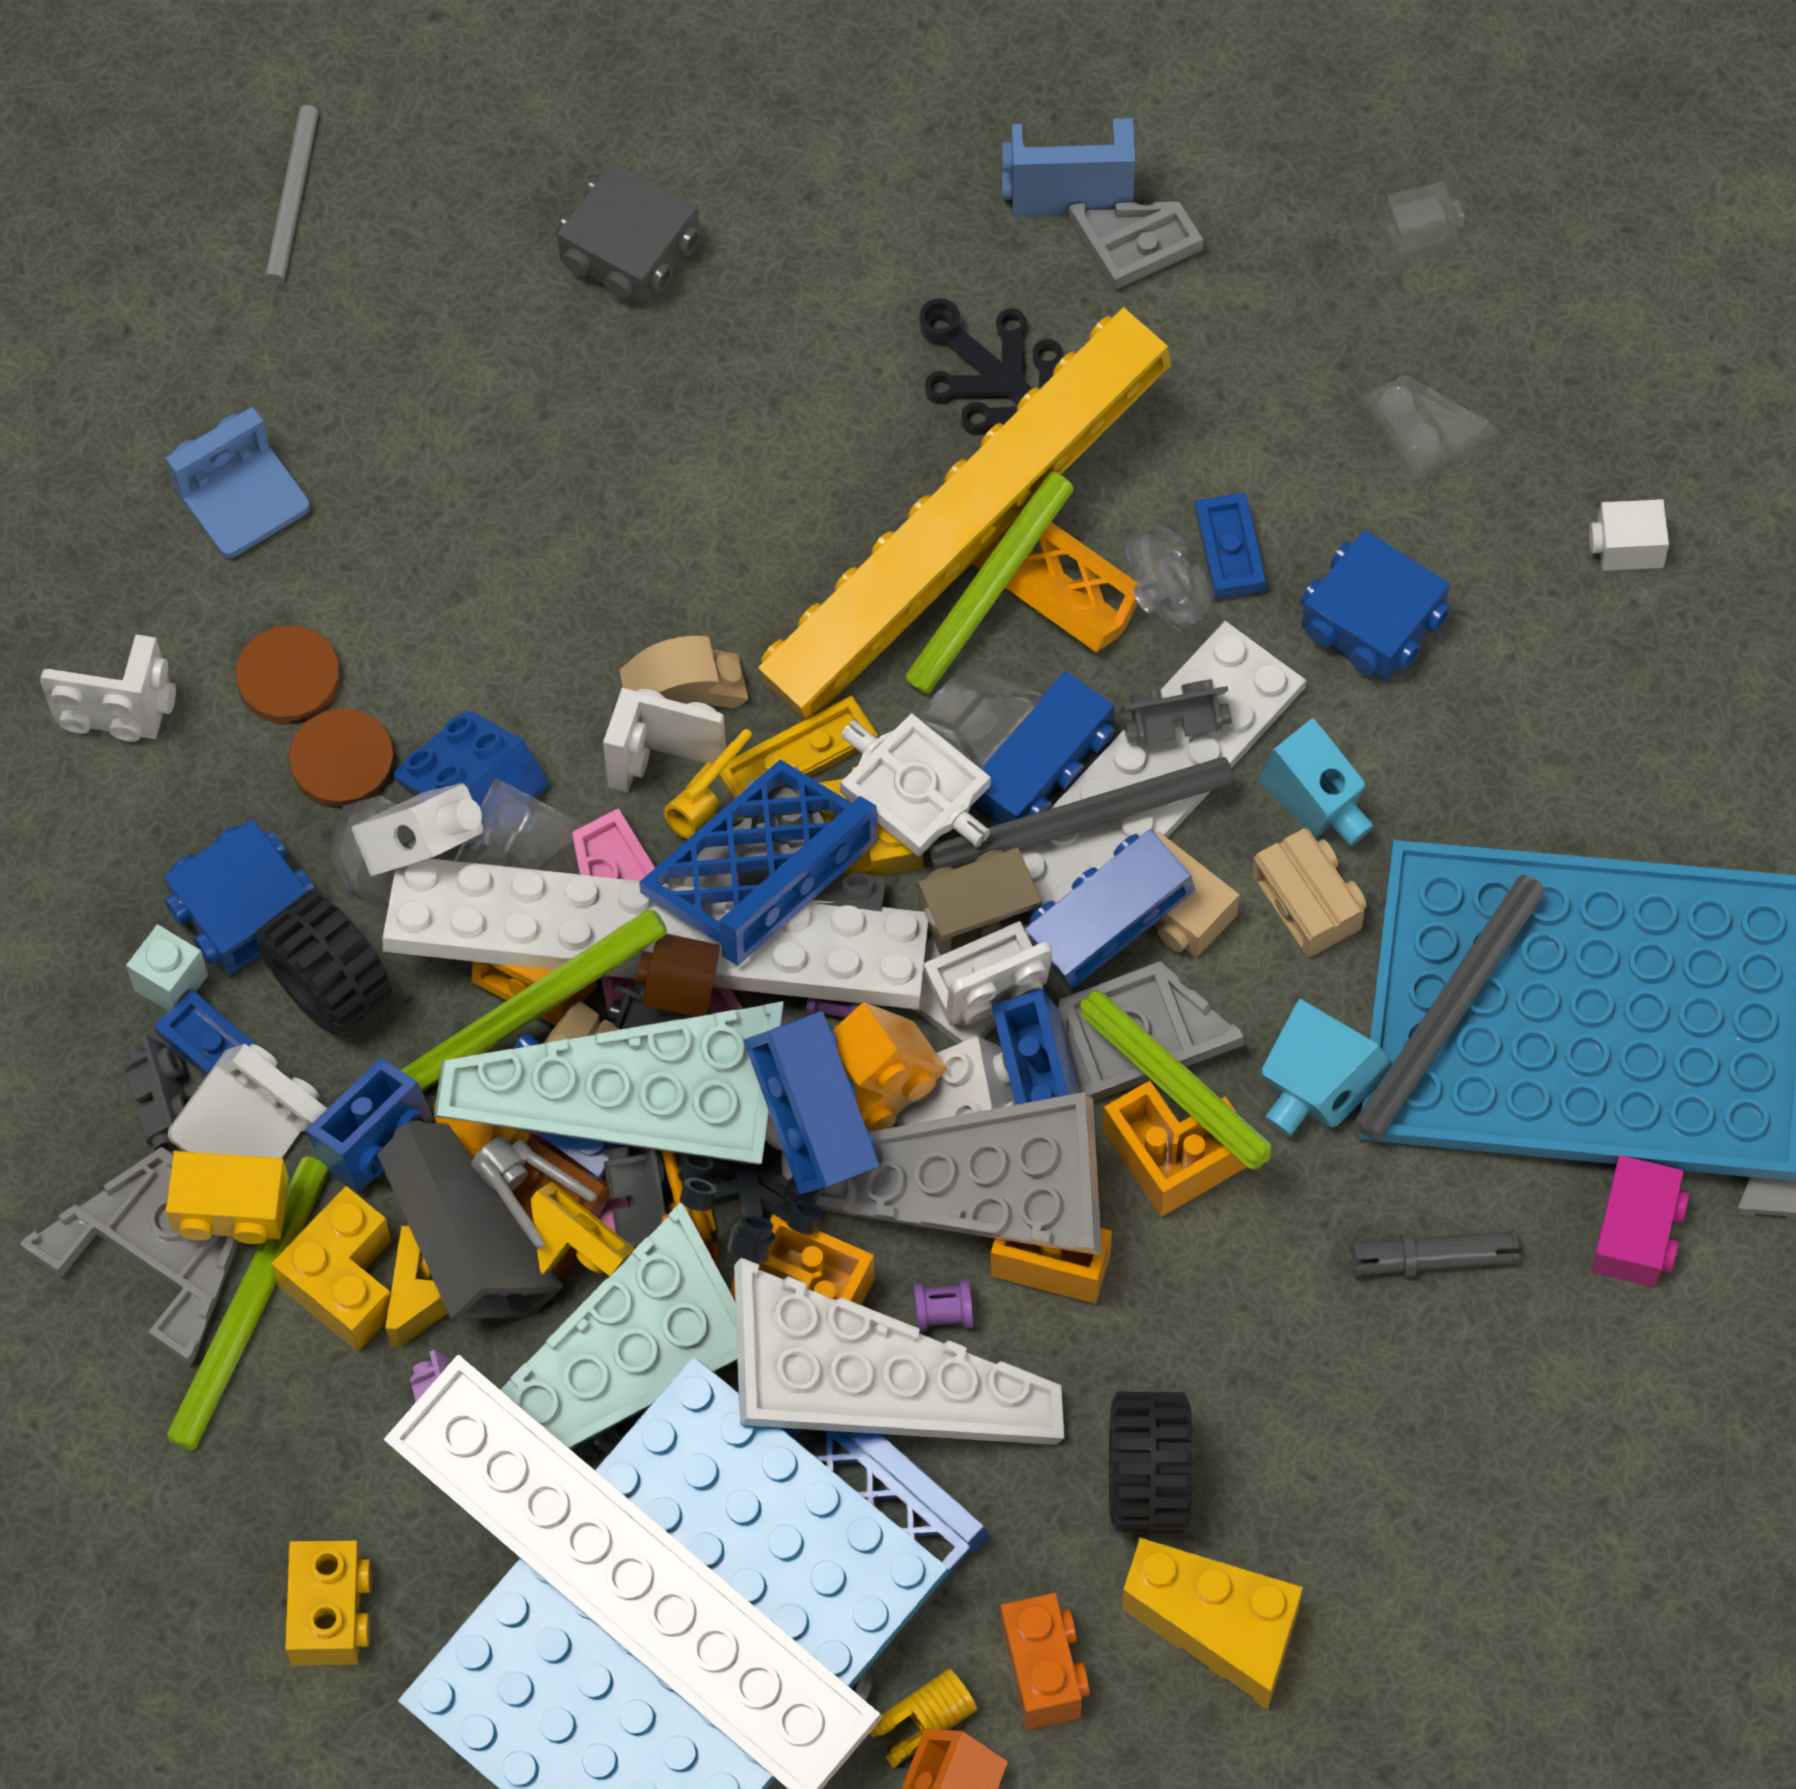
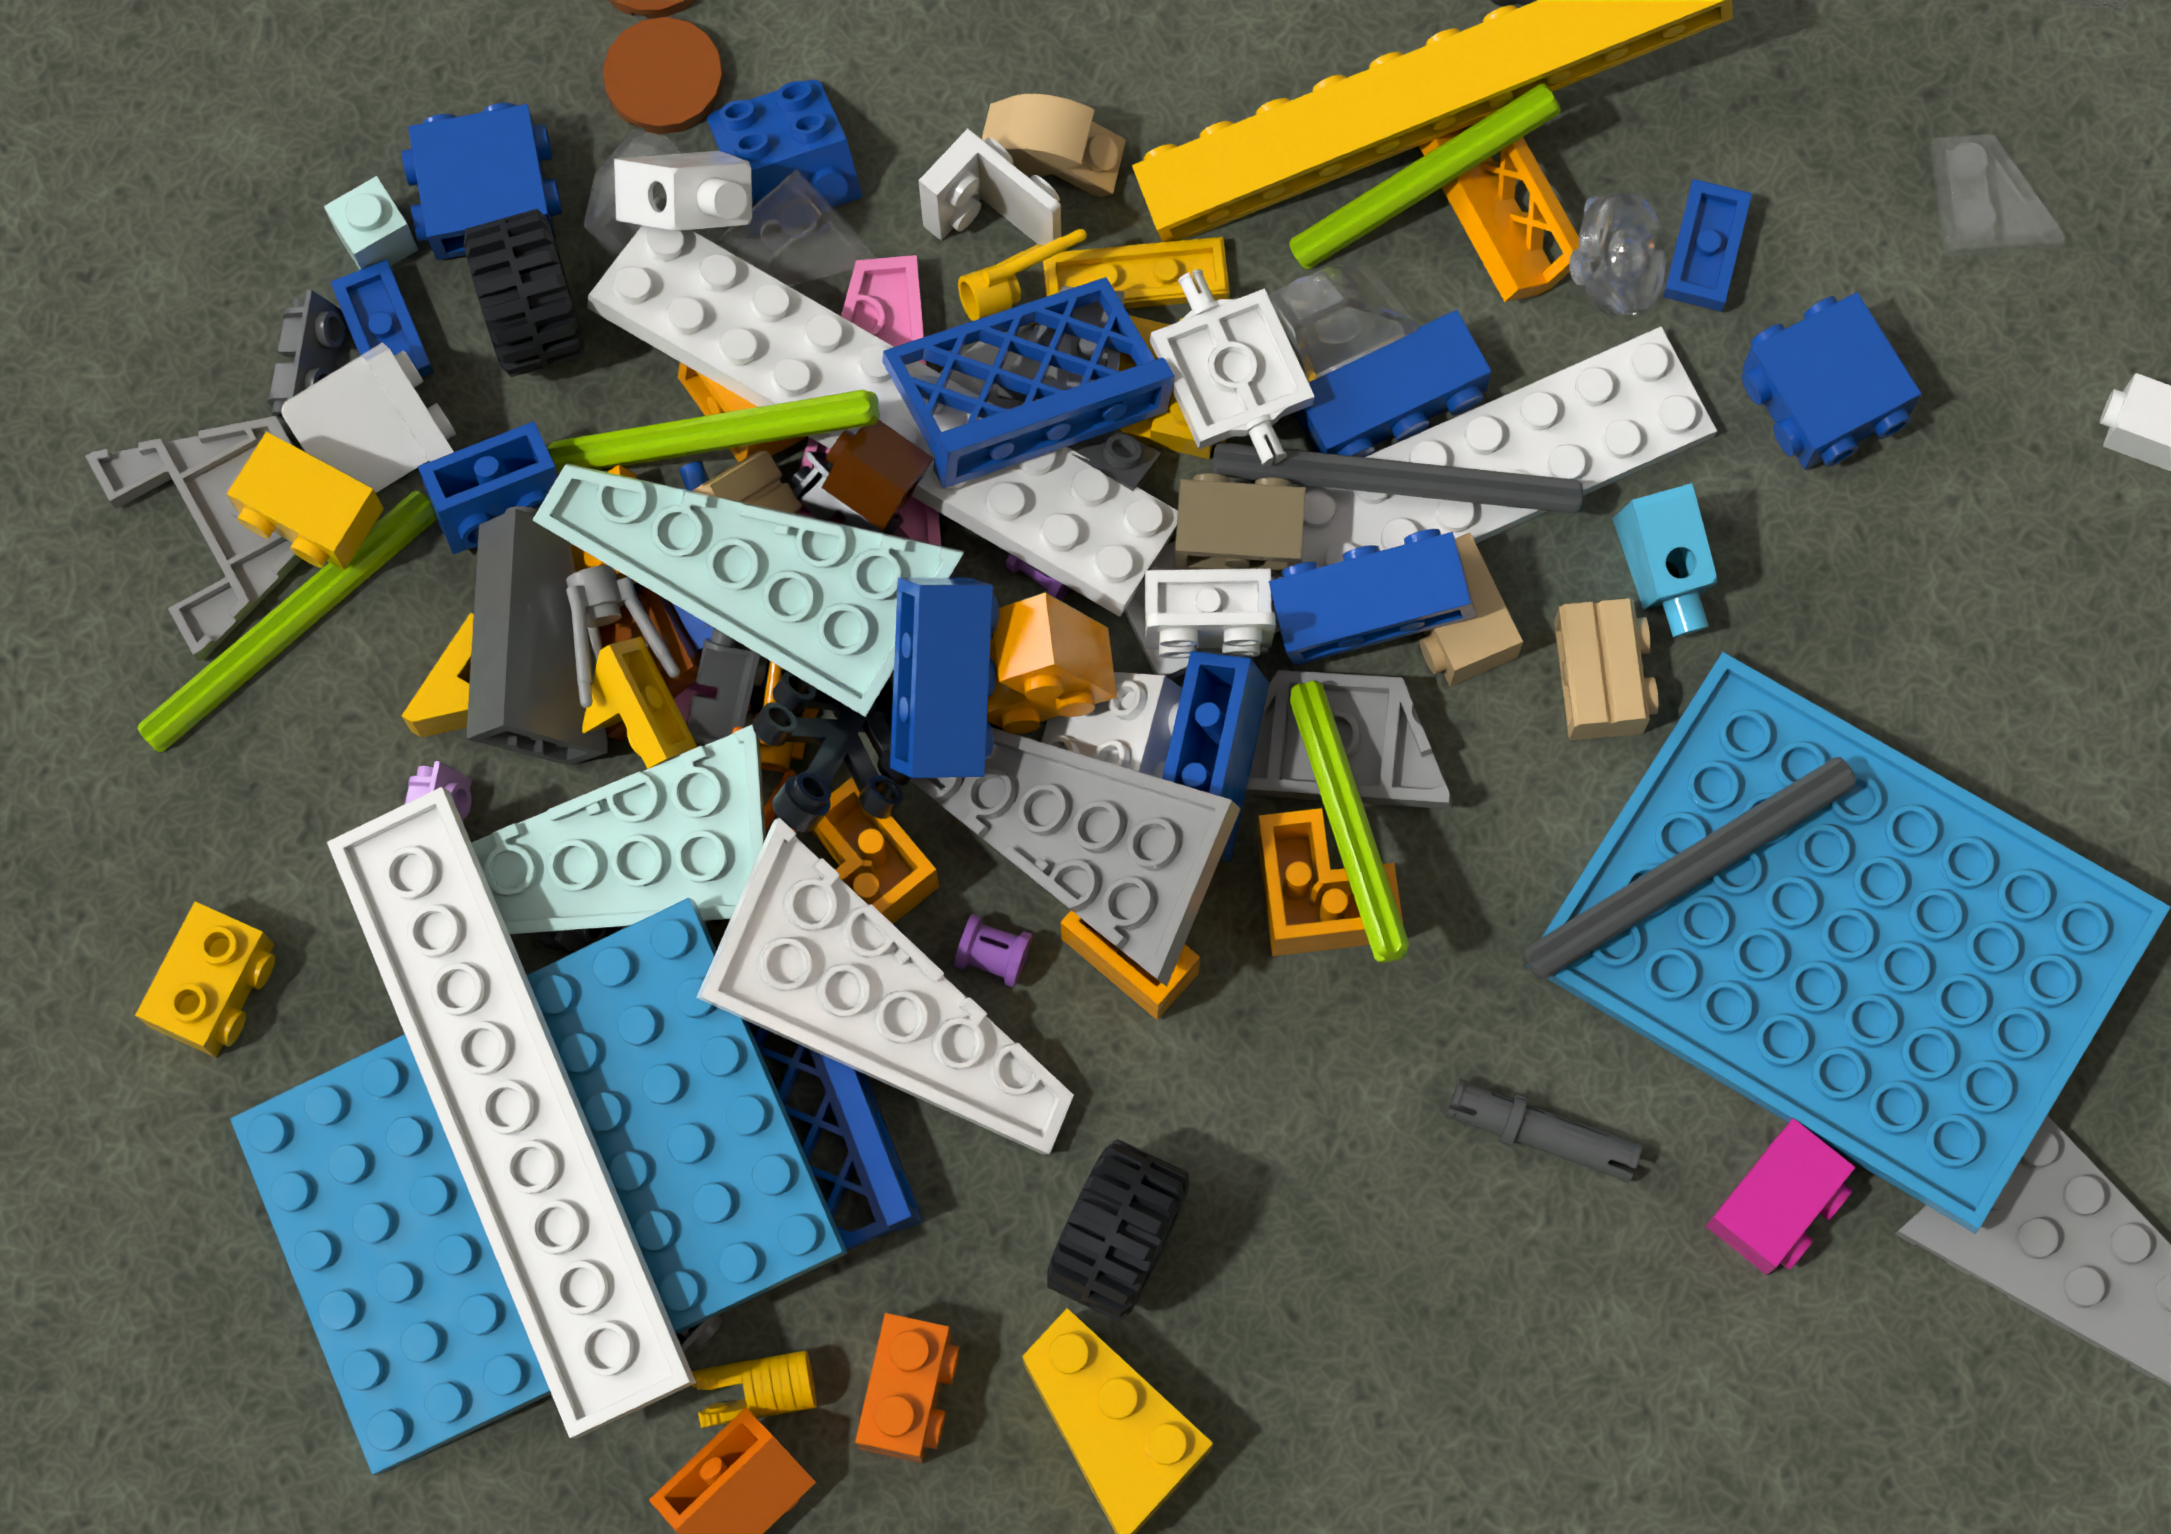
camera: 25 degrees right, 10 degrees up
(328, 1265) = (379, 619): yellow brick -> none
(1196, 707) = (1529, 401): dark grey hinge -> none
(1320, 1069) = (1515, 874): medium azure torso -> none

